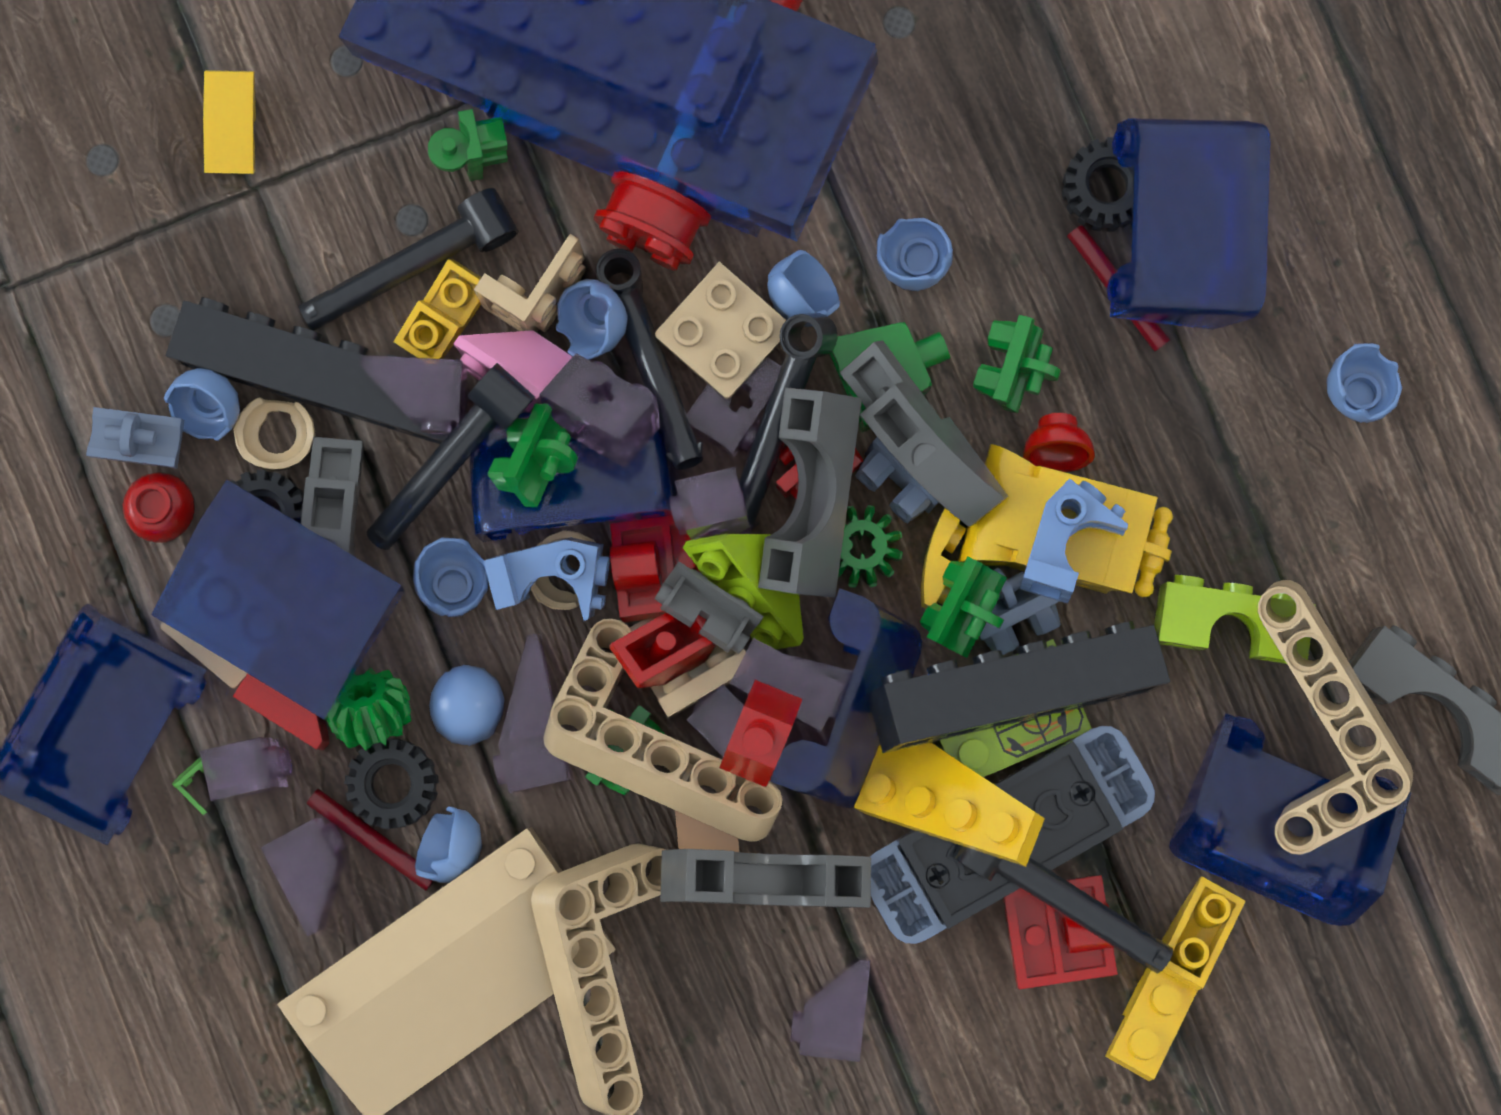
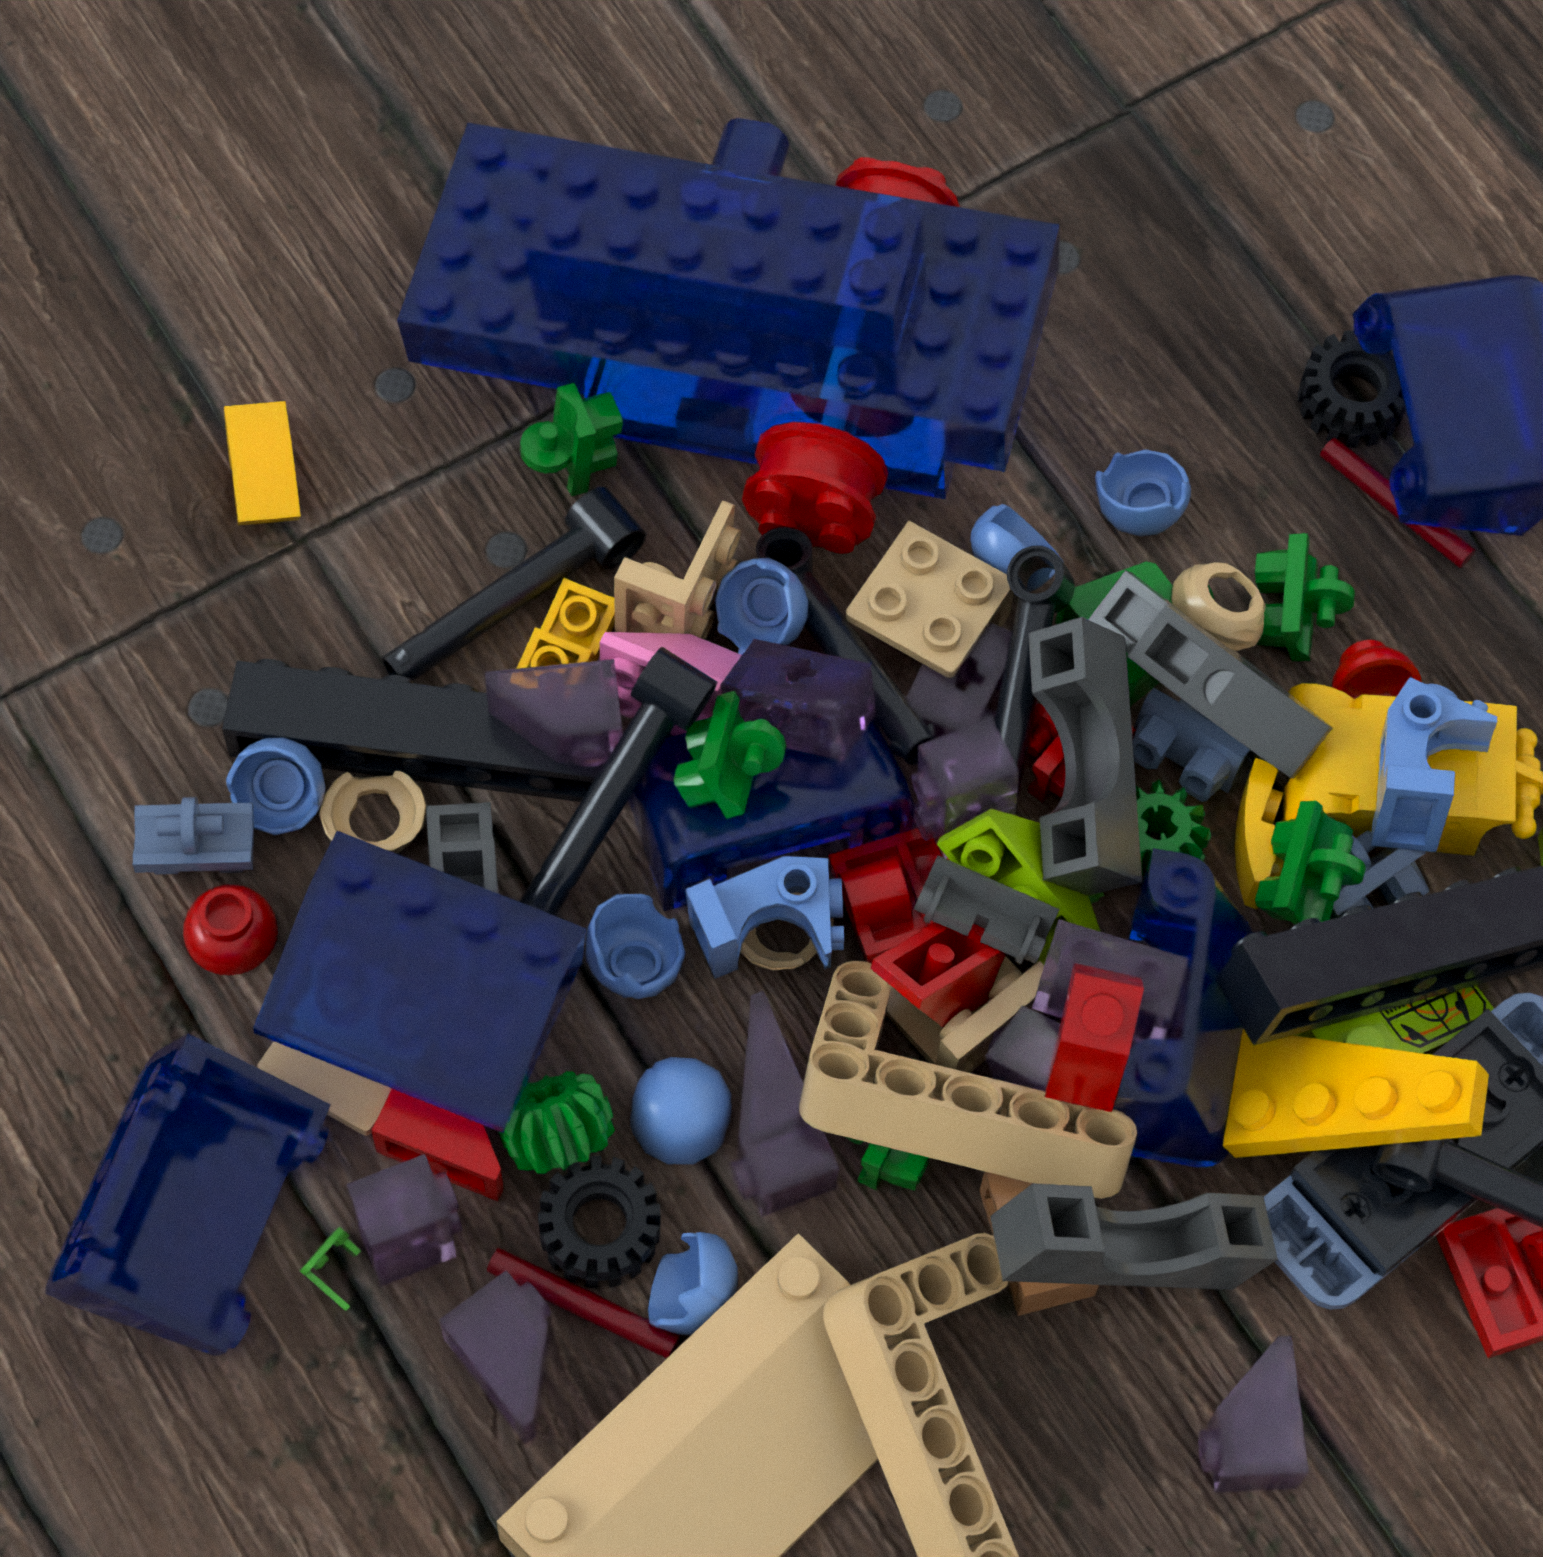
camera: 15 degrees left, 20 degrees down
(931, 380) = (1231, 628): none -> tan piece

